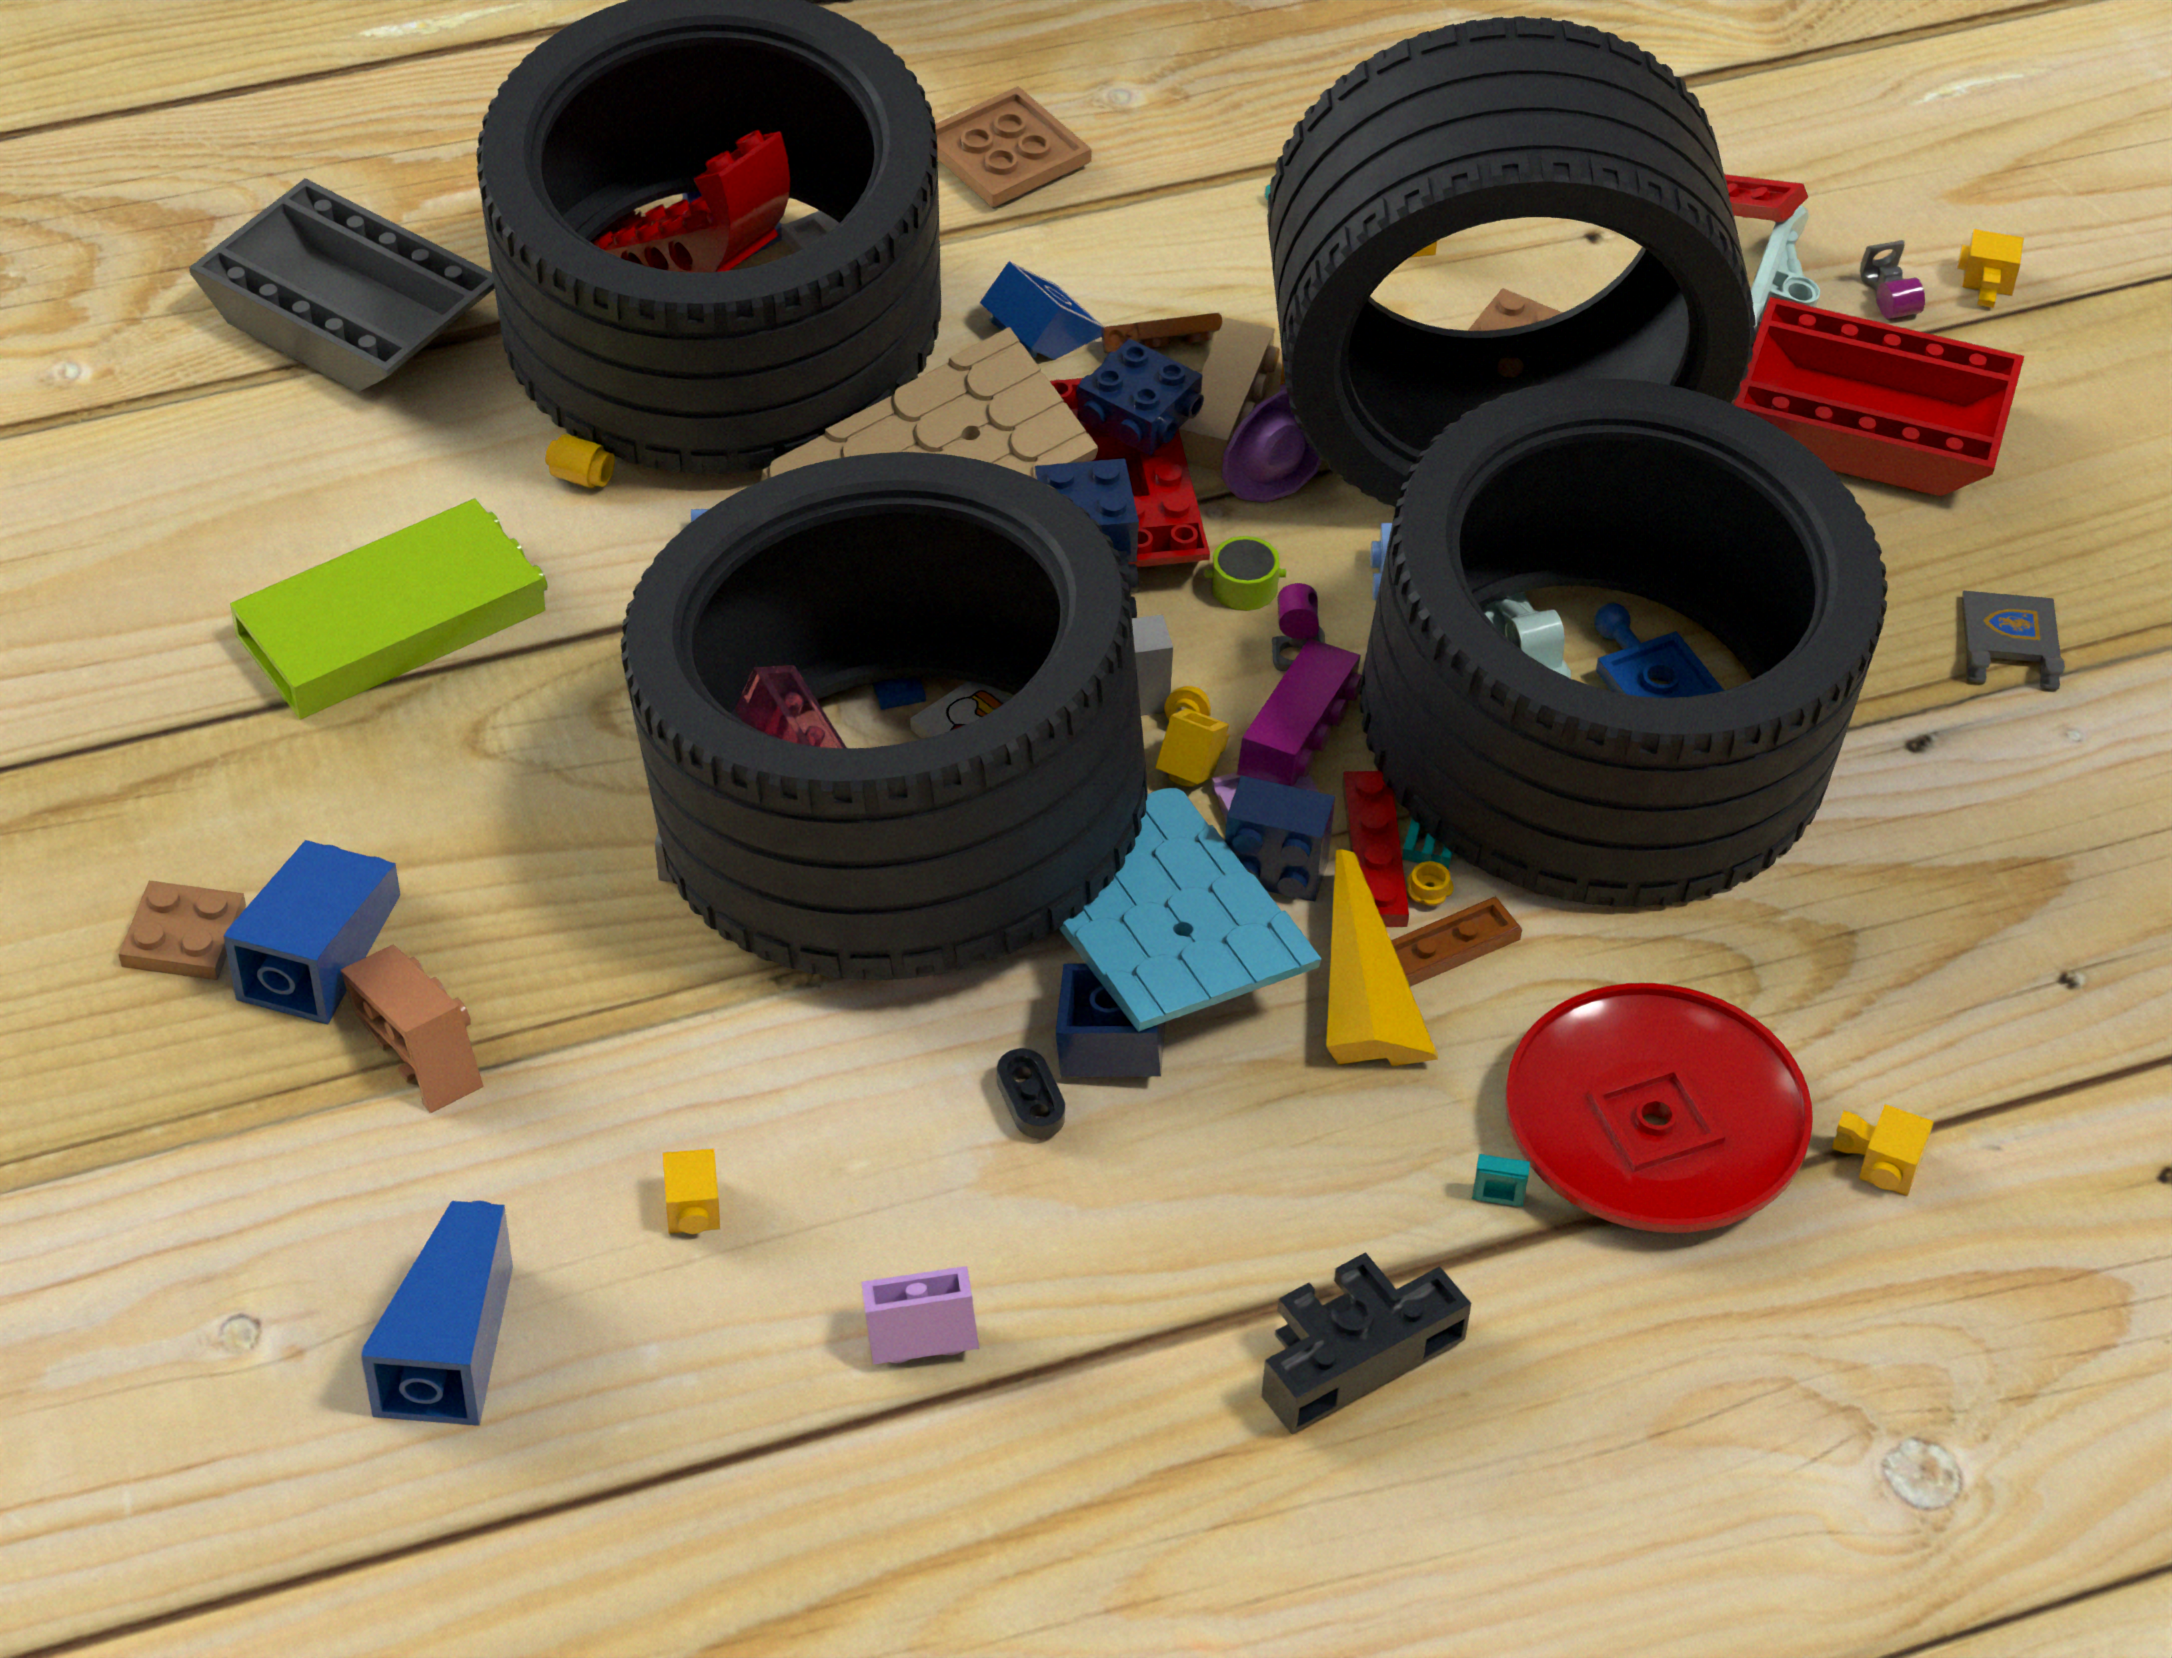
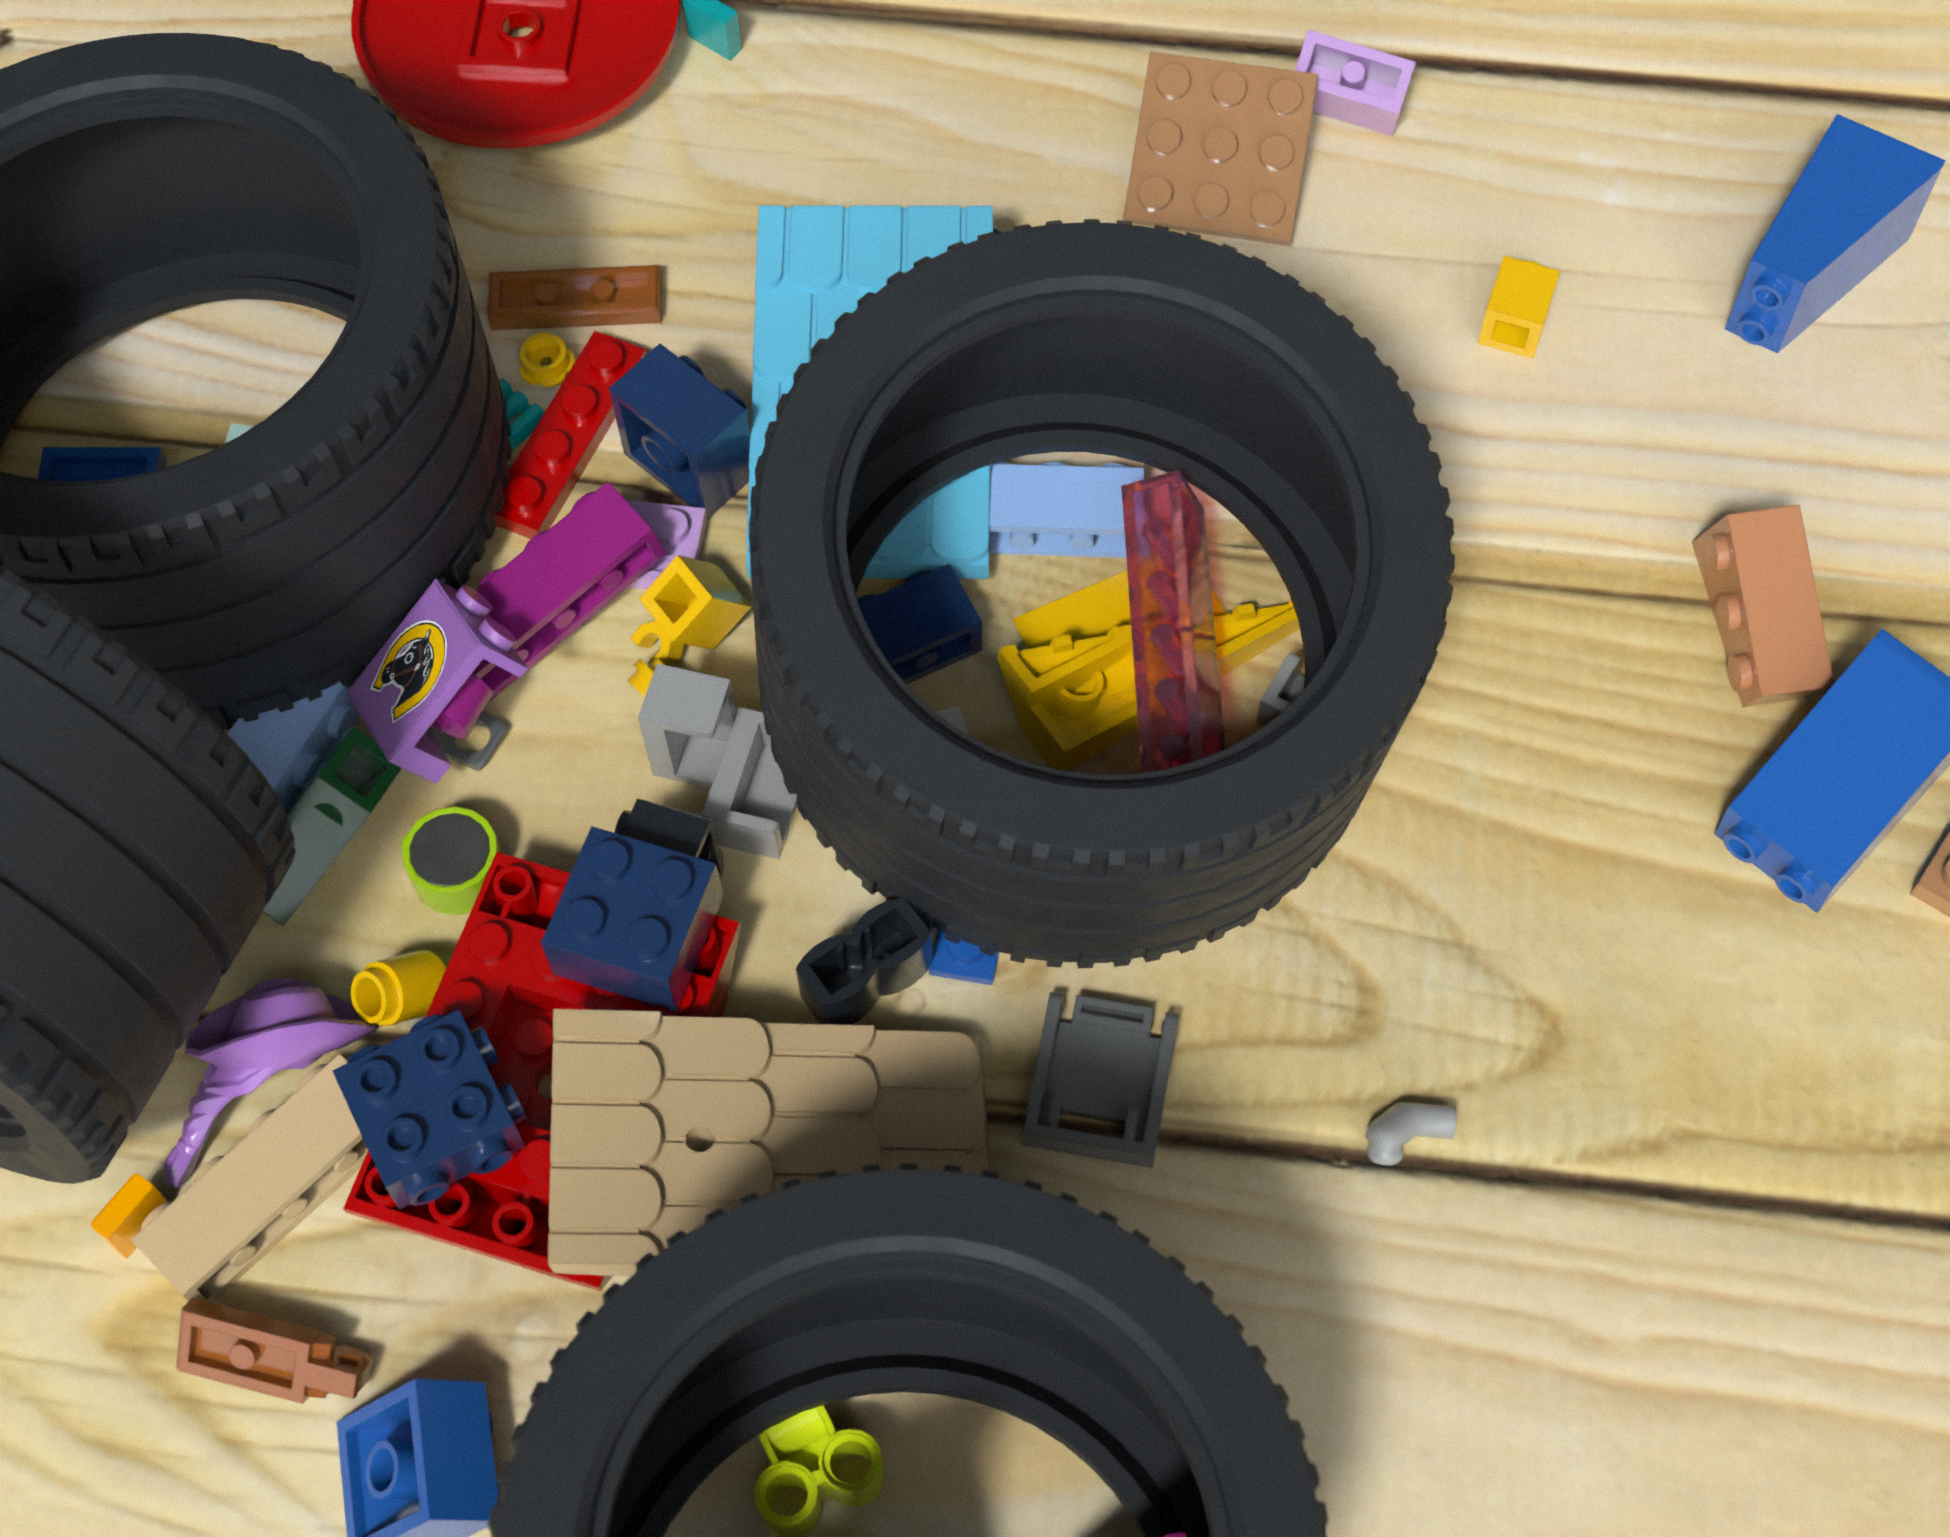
camera: 150 degrees left, 15 degrees up
(388, 607) = (1605, 1285): lime brick -> none
(551, 651) = (1403, 1123): none -> light grey arm
(1001, 1211) = (1220, 148): none -> medium nougat plate
(1220, 491) = (397, 987): none -> yellow brick
(1318, 615) = (423, 671): none -> medium lavender panel
(1342, 562) = (329, 813): none -> slope
(1369, 993) = (700, 247): yellow wedge -> none

